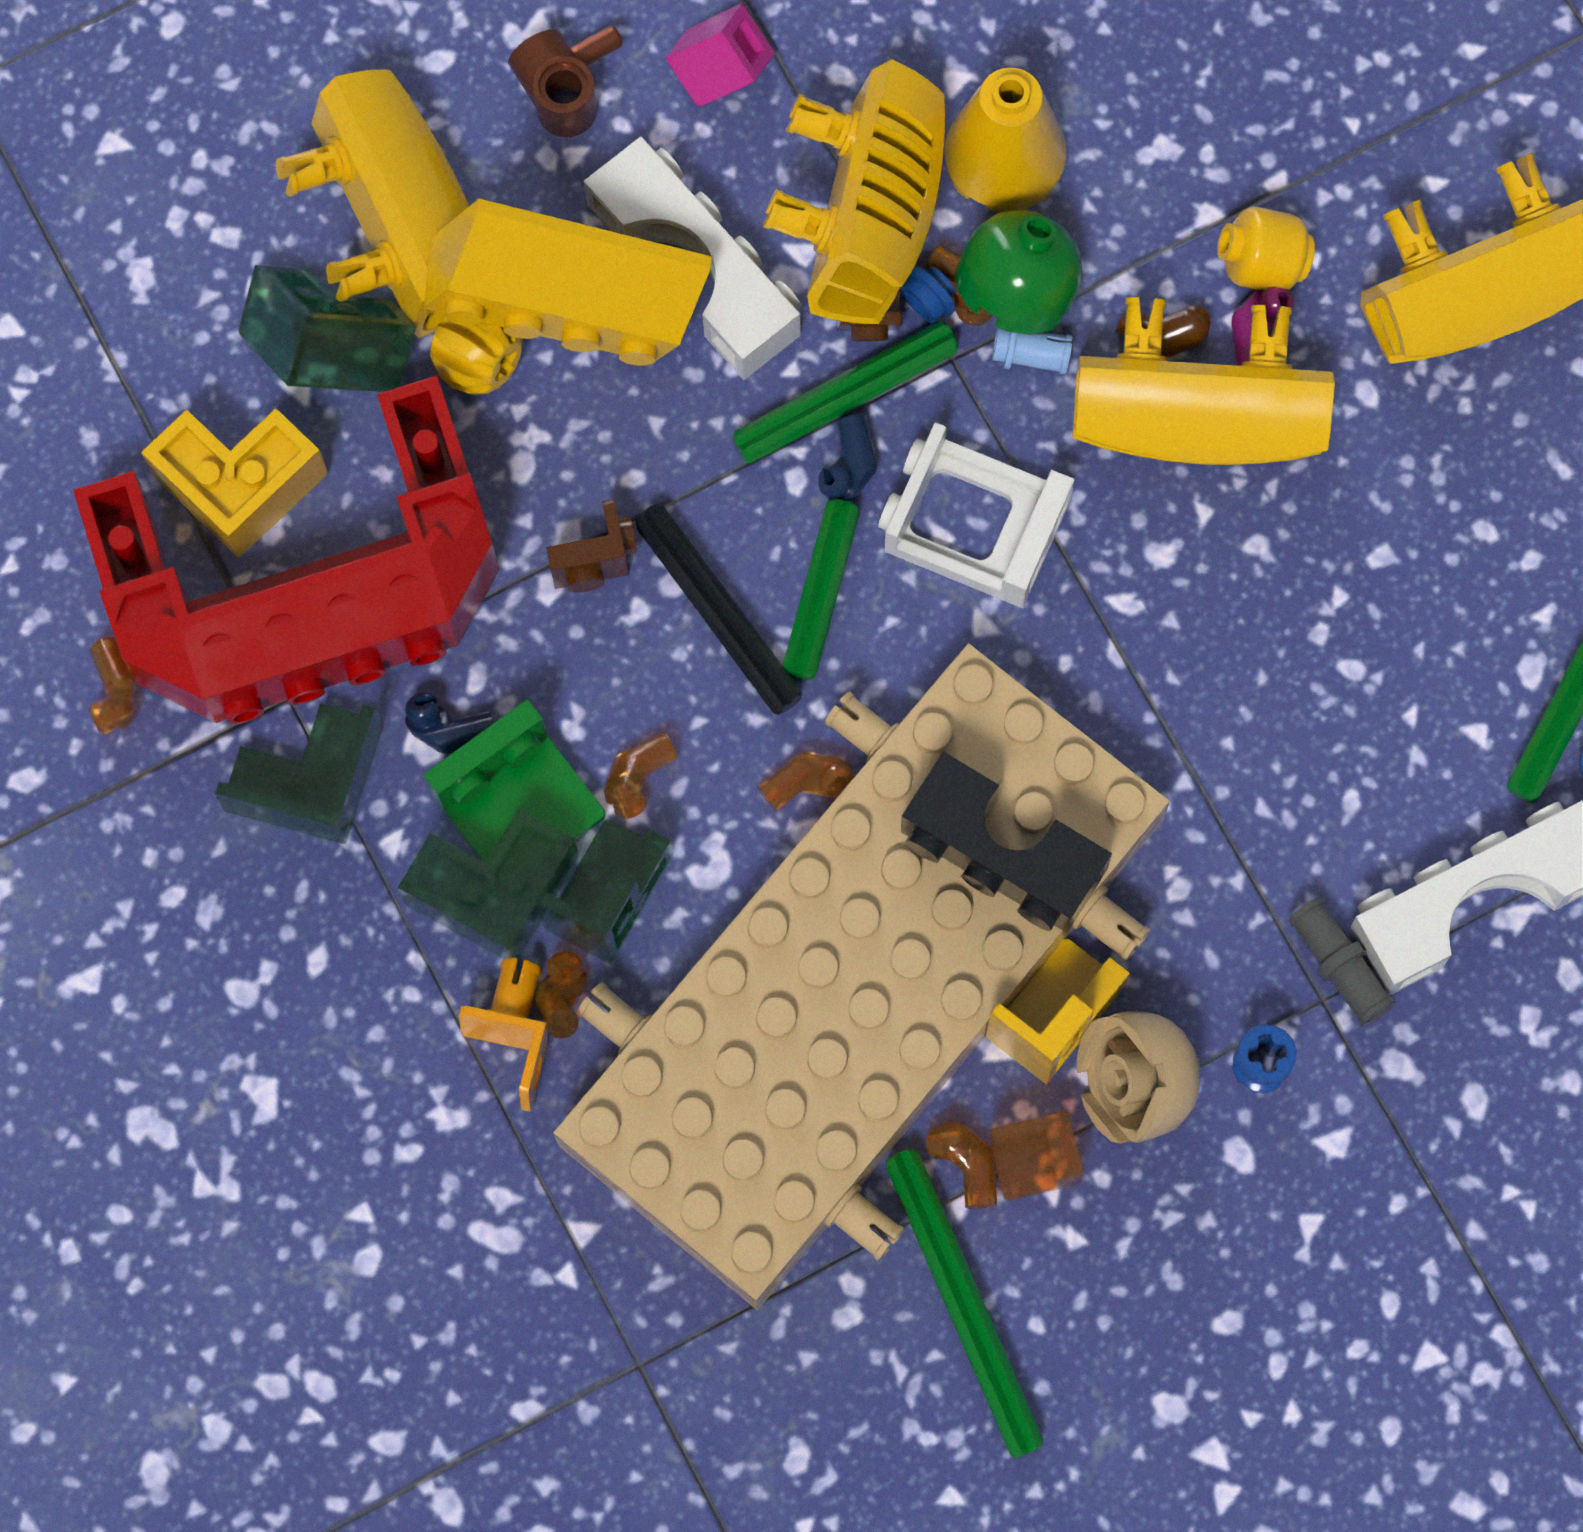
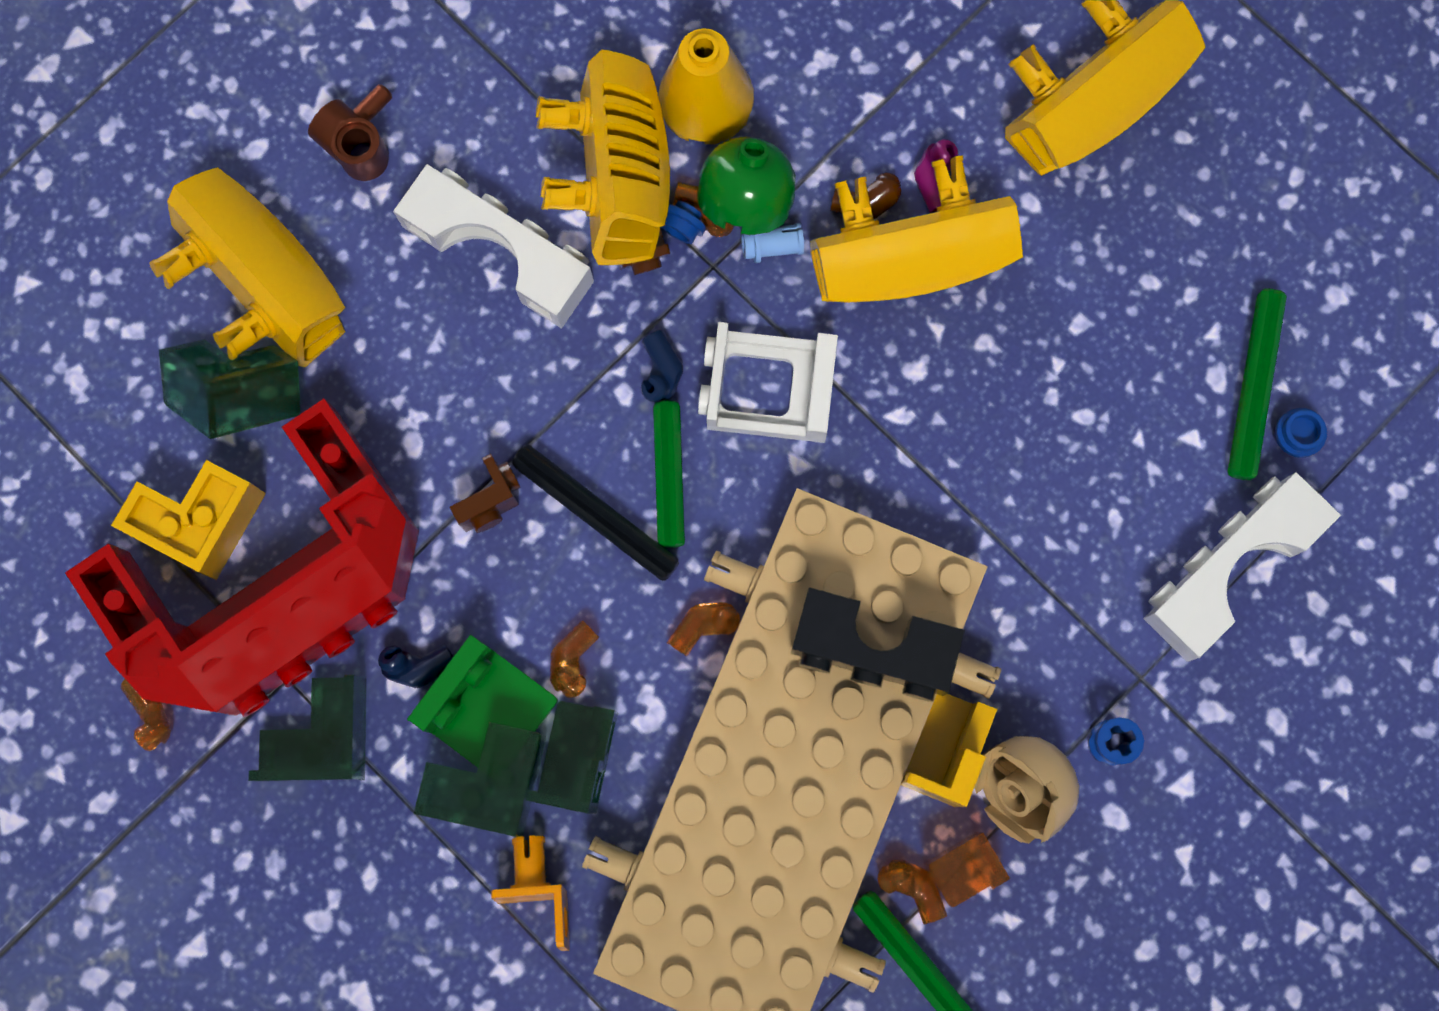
camera: 15 degrees left, 5 degrees up
(474, 356) = (349, 364): yellow piece -> none
(560, 993) = (563, 853): clear orange arm -> none
(563, 282) = (399, 297): yellow slope -> none
(720, 55) = (469, 83): dark pink panel -> none
(845, 392) = (641, 316): green axle -> none
(1266, 249) = (926, 115): yellow head -> none
(1341, 961) = (1149, 647): dark grey pin -> none

